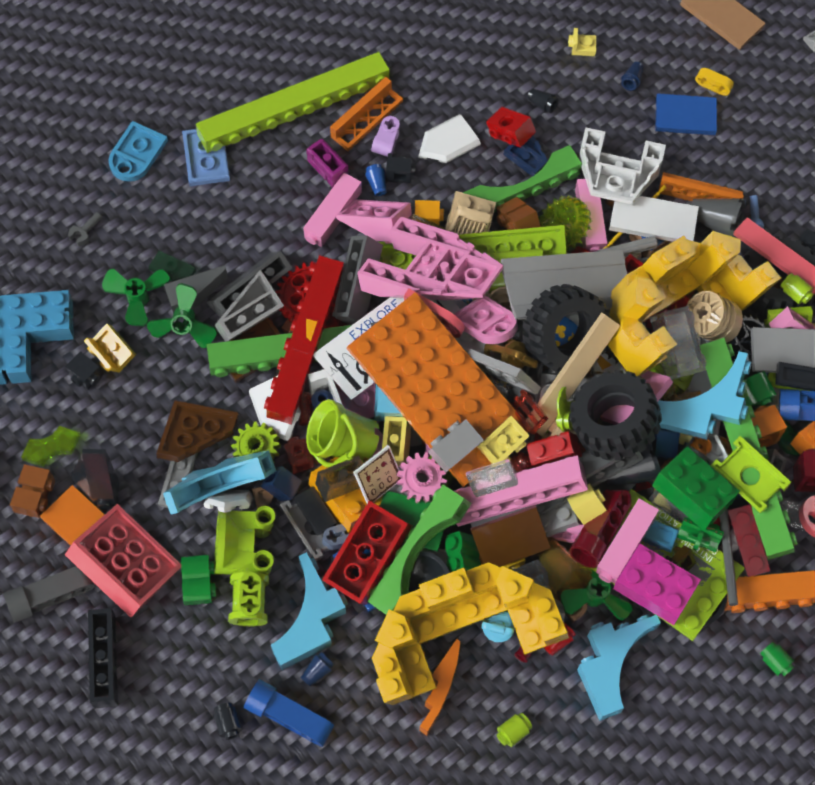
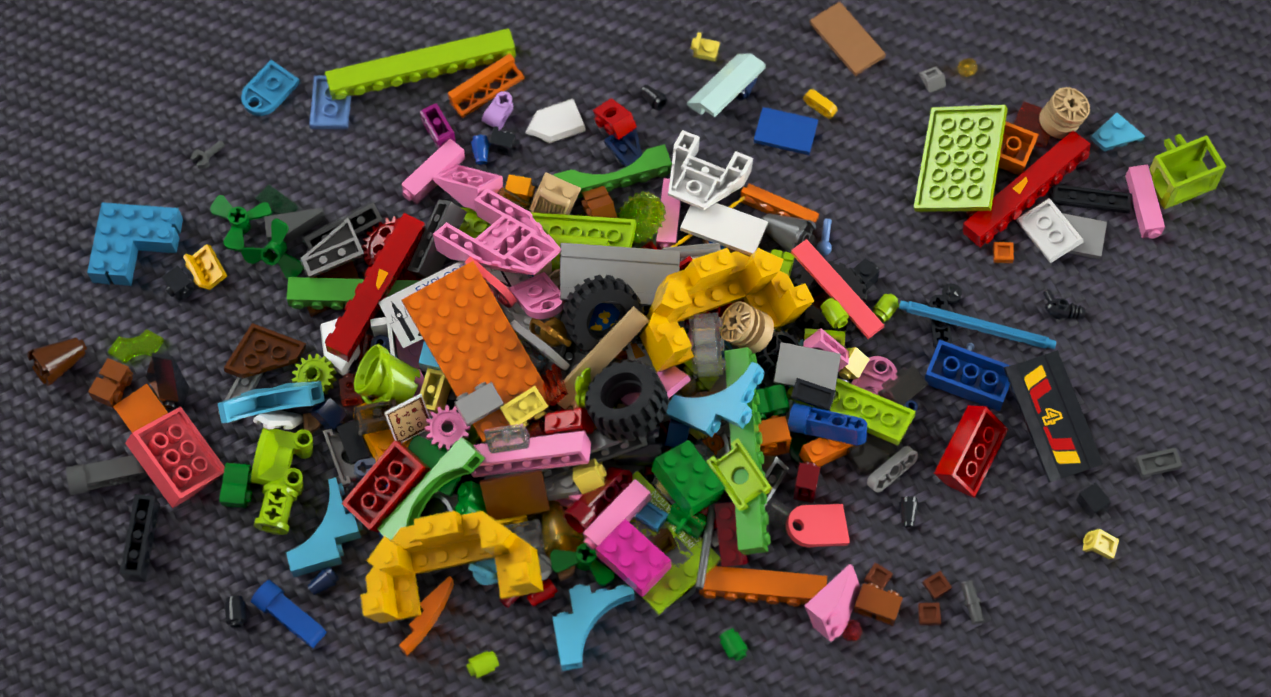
camera: 15 degrees right, 0 degrees up
(615, 75) = (727, 84): none -> light aqua slope

